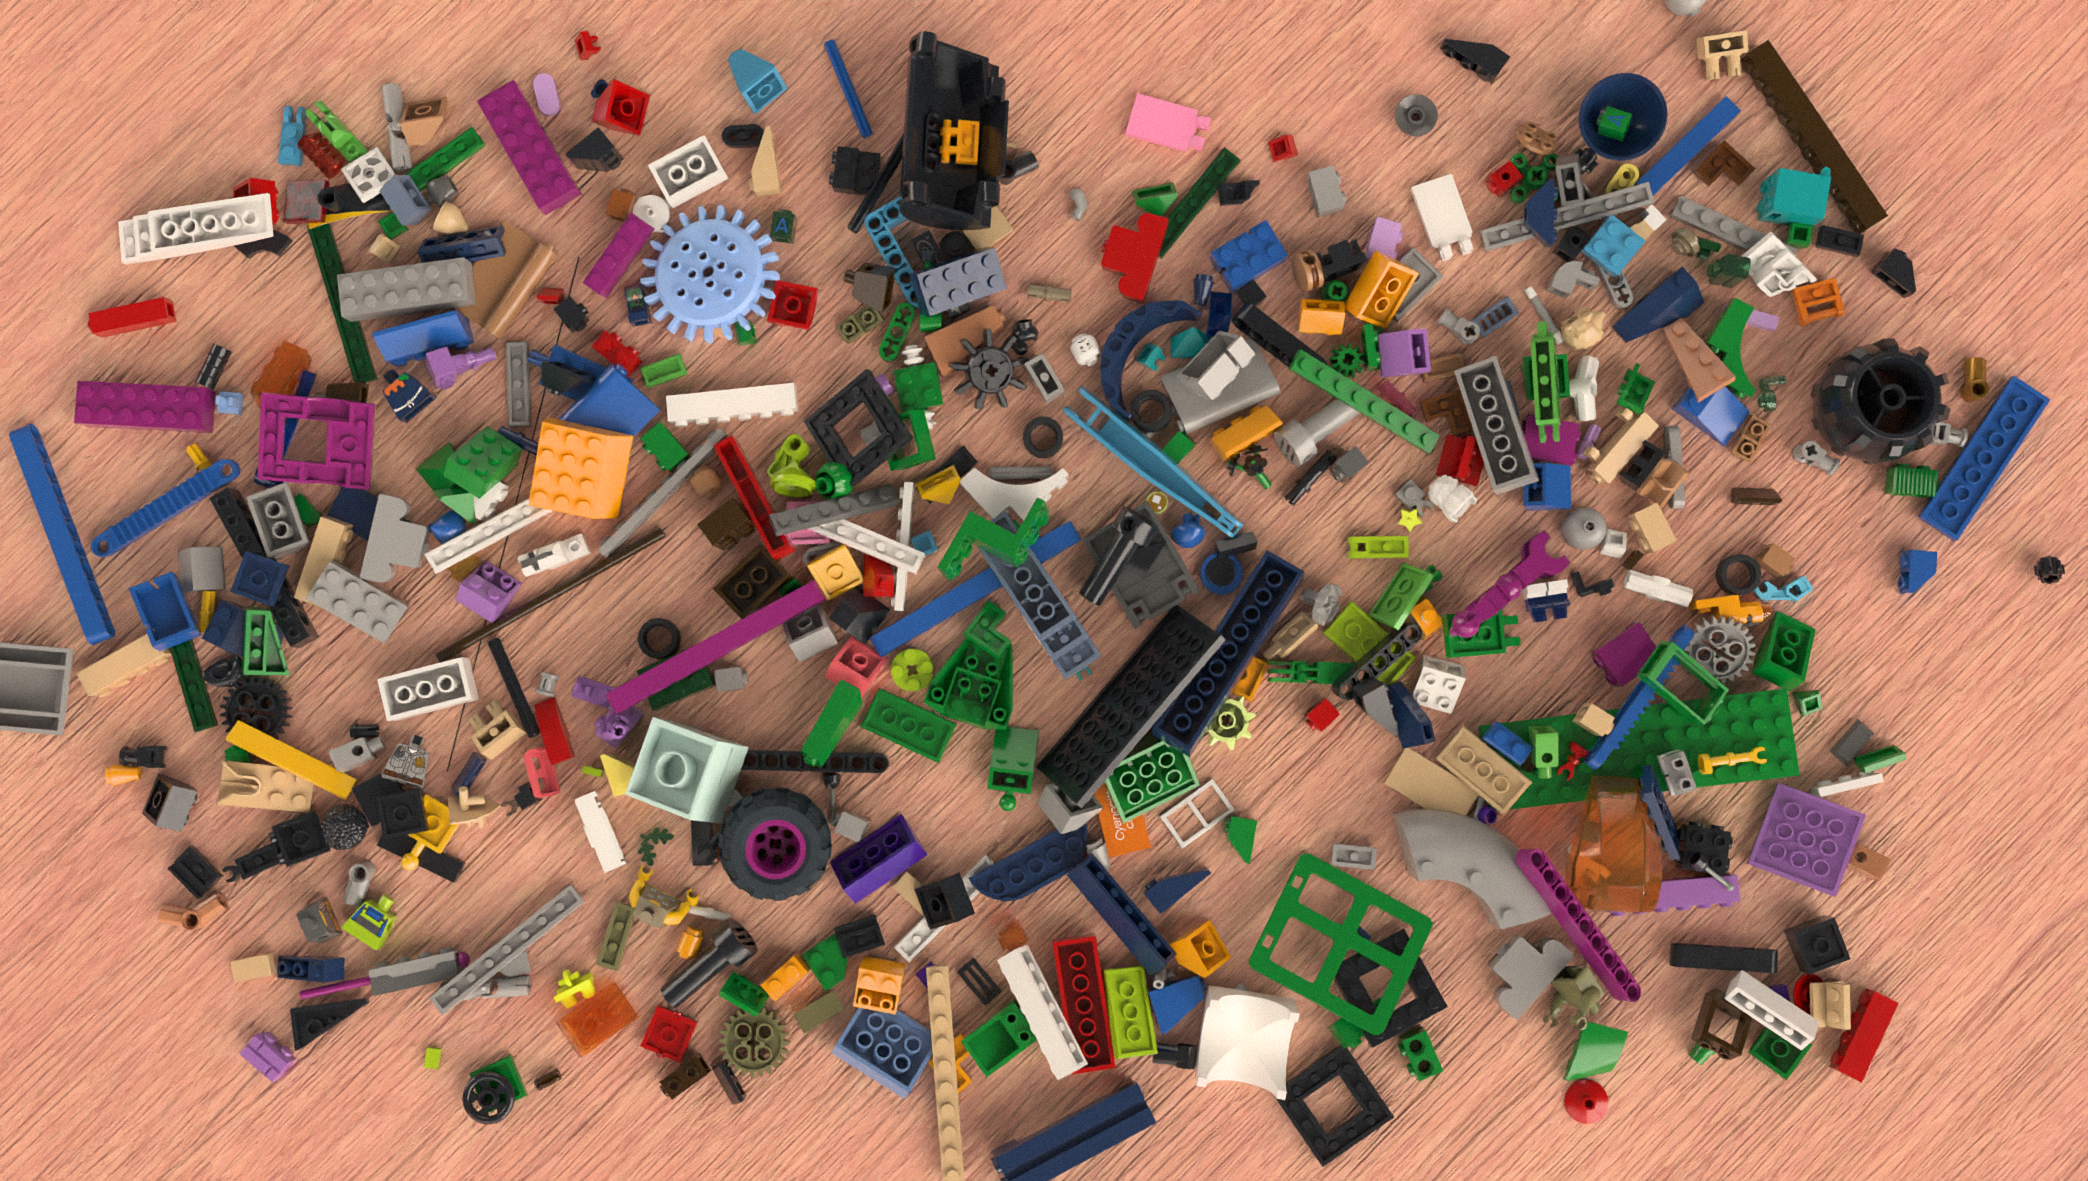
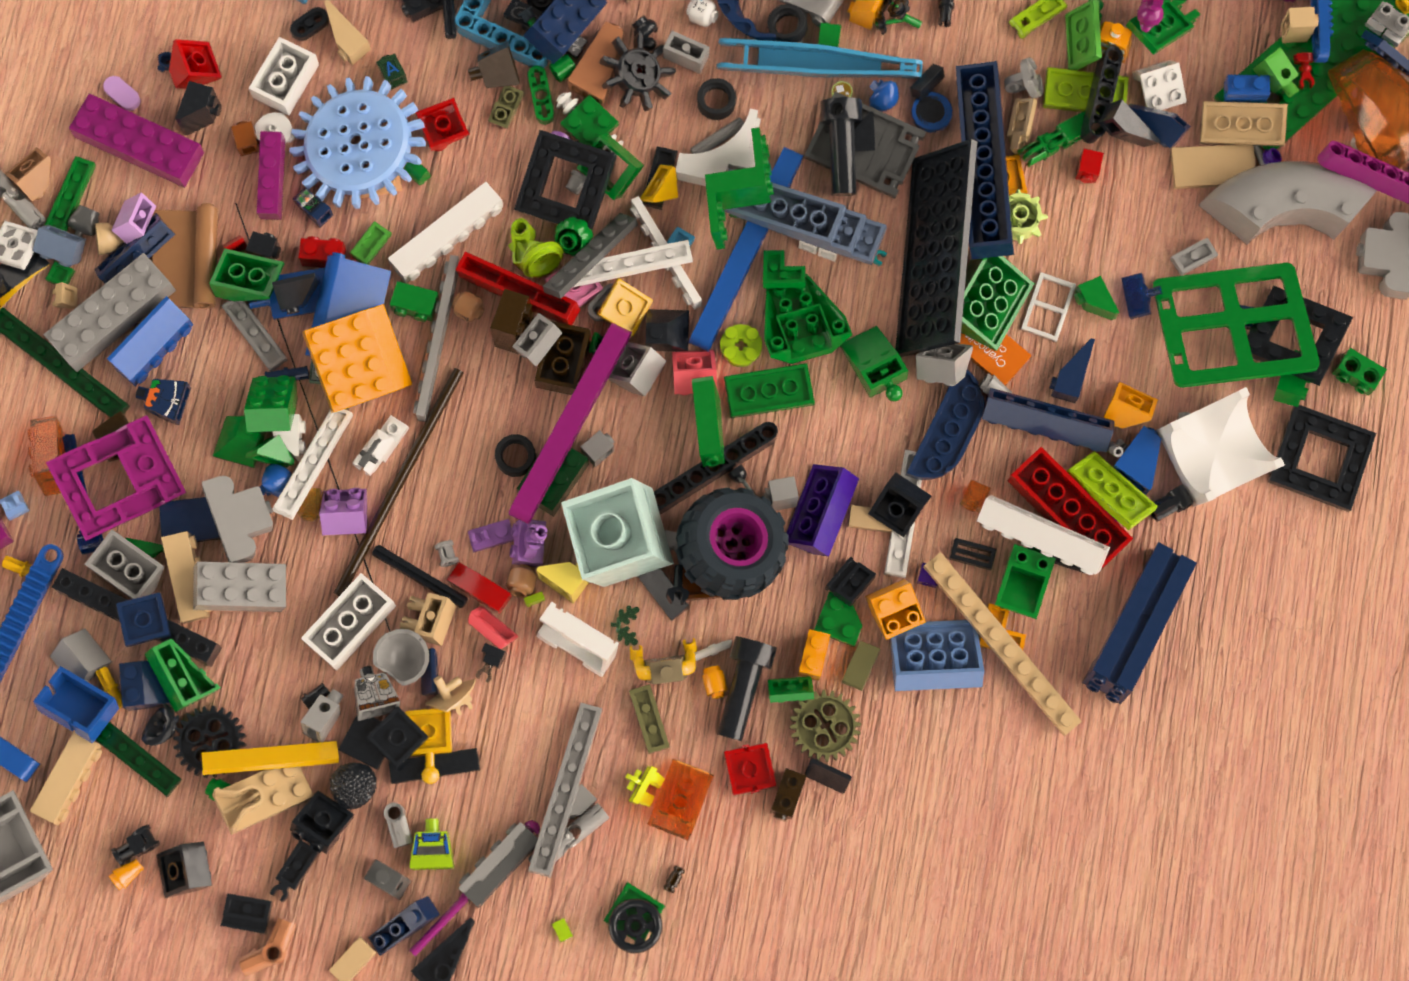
camera: 45 degrees left, 10 degrees down
(445, 368) = (184, 351): medium lavender brick -> none
(450, 749) = (402, 655): none -> light grey cylinder
(479, 218) = (134, 218): none -> lavender brick
(536, 333) = (244, 276): none -> green slope
(584, 45) = (129, 34): red tile -> none
(590, 749) = (521, 581): none -> medium nougat head
(733, 558) = (537, 339): none -> light grey brick
(877, 578) = (662, 289): red slope -> none
(1280, 857) = (1138, 295): none -> clear blue plate

